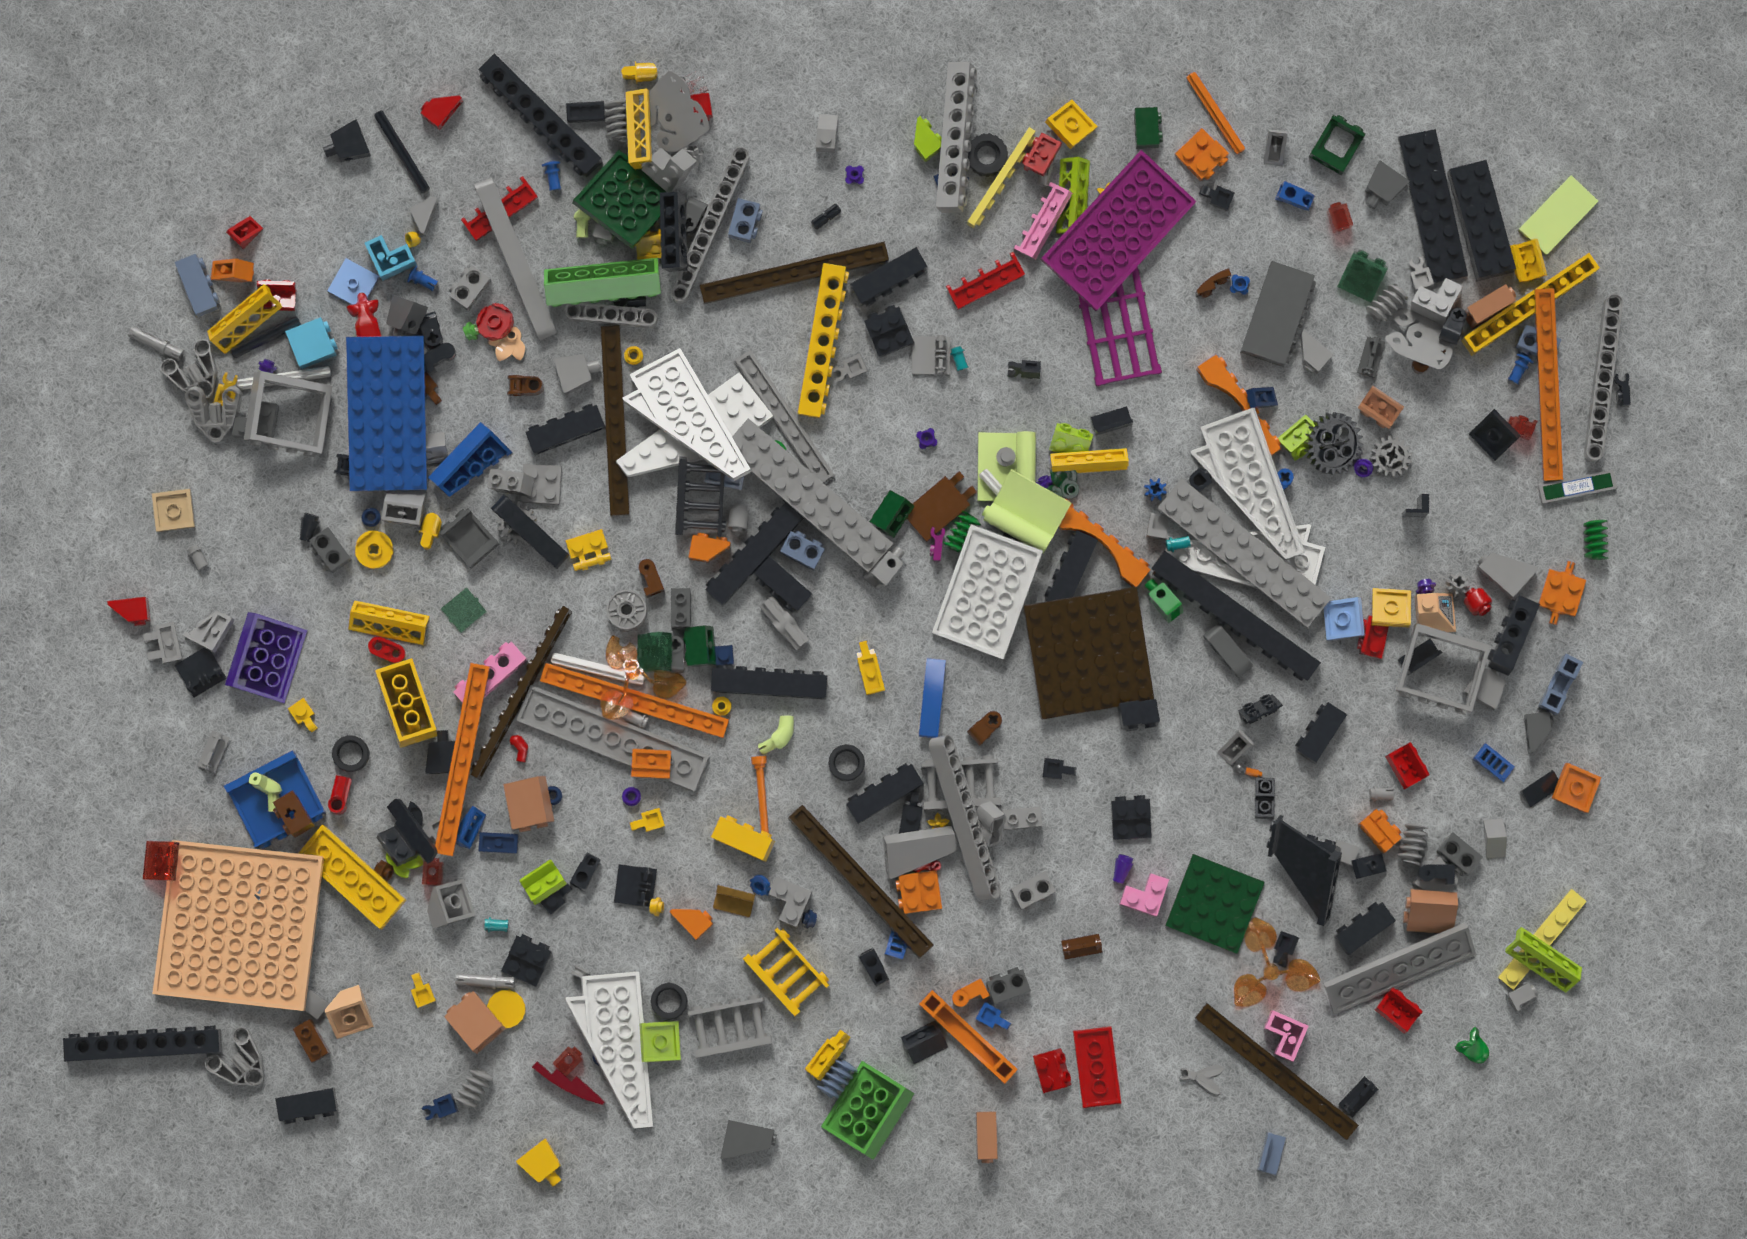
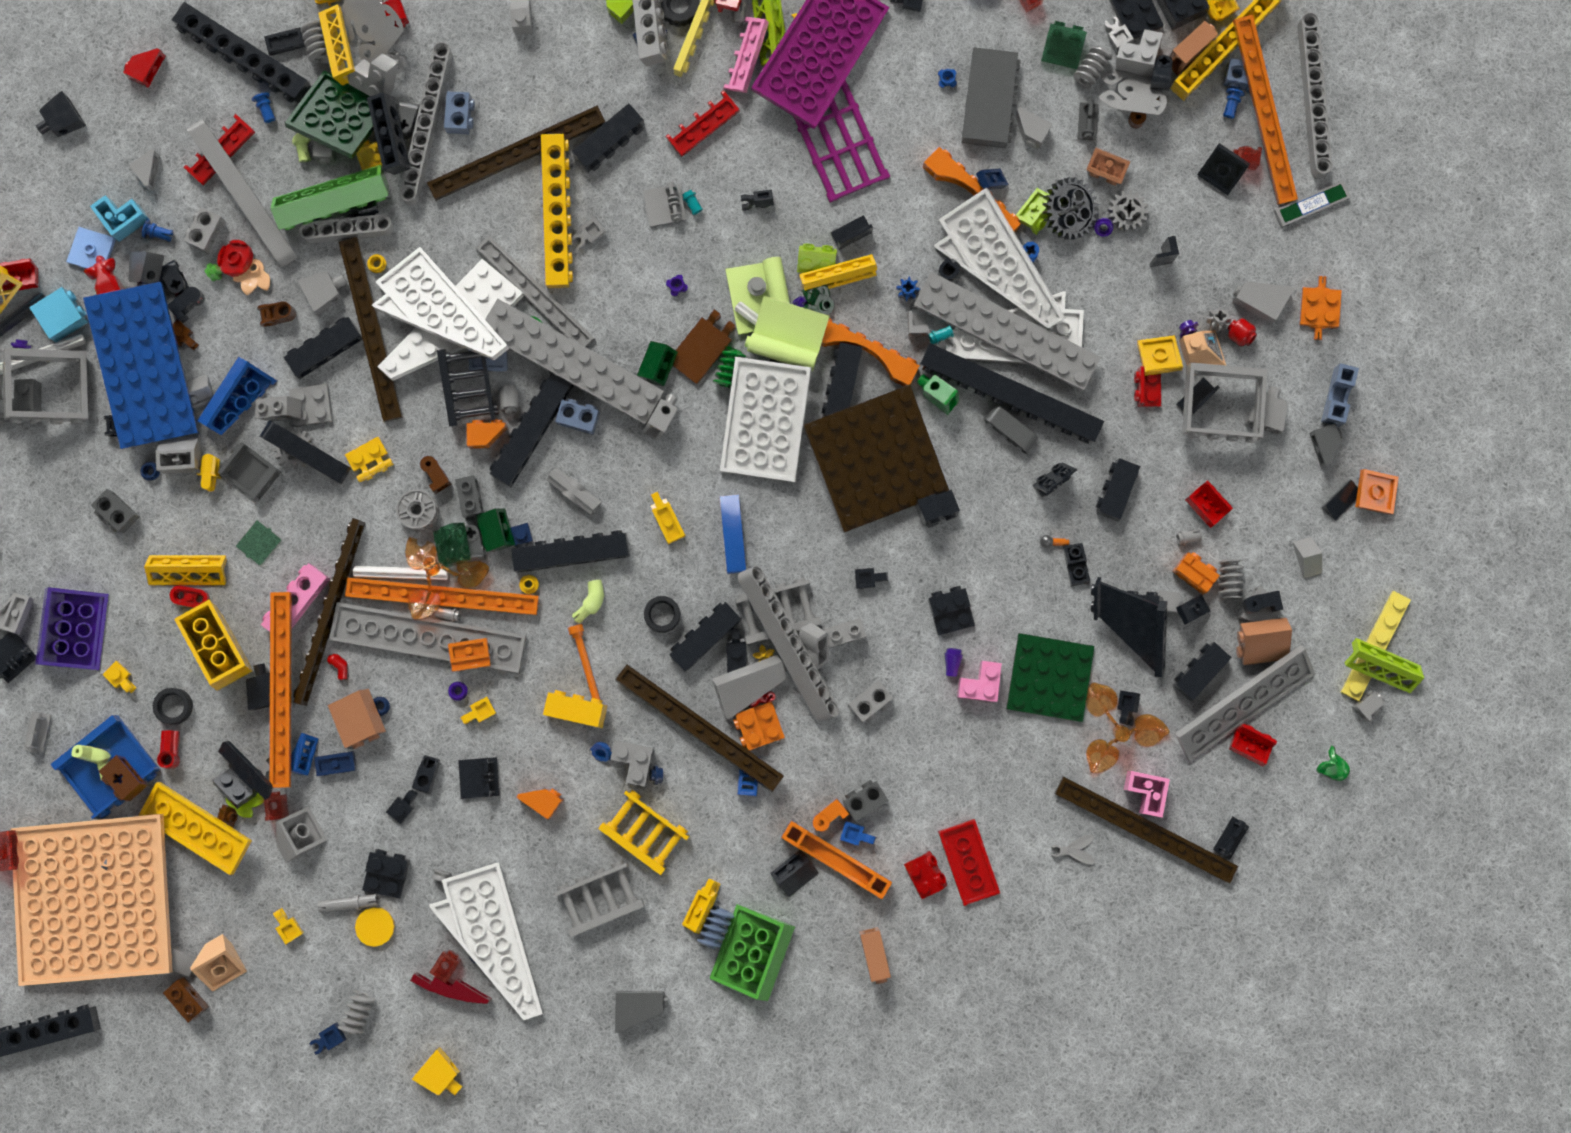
camera: 10 degrees left, 0 degrees up
(251, 1050) = (130, 1024): light grey connector -> none
(307, 1105) = (193, 1065): black brick -> none
(308, 526) = (90, 492): black cone -> none
(363, 549) = (147, 501): yellow plate -> none
(401, 151) = (113, 113): black axle -> none
(412, 239) = (140, 195): yellow hinge -> none
(416, 812) = (248, 751): black tile -> none
(474, 1022) = (344, 947): nougat panel -> none
(496, 925) = (348, 845): teal pin -> none
(542, 882) = (386, 793): lime bracket -> none
(654, 1001) = (519, 885): black tyre -> none
(656, 906) = (503, 794): yellow plate -> none
(660, 1041) = (532, 928): lime plate -> none
(734, 901) = (579, 773): pearl gold panel -> none
(782, 585) = (565, 454): black brick -> none
(822, 219) = (534, 96): black piece -> none
(850, 171) = (556, 53): dark purple plate -> none
(873, 966) = (729, 809): black leg -> none
(889, 331) = (619, 189): black plate -> none
(936, 549) = (707, 389): magenta plate -> none
(982, 729) = (788, 554): reddish brown piece -> none
(1081, 946) = (929, 746): reddish brown hinge -> none
(1208, 286) = (918, 85): reddish brown slope -> none
(1235, 747) = (1038, 520): light grey slope -> none
(1271, 1153) = (1158, 912): sand blue panel -> none
(1344, 618) = (1117, 375): light blue plate -> none
(1462, 849) = (1279, 575): dark grey brick -> none
(1477, 758) = (1288, 490): blue slope -> none
(1505, 662) = (1292, 331): black brick -> none
(1595, 540) = (1341, 250): green piece -> none
(1623, 394) = (1337, 105): black plate -> none

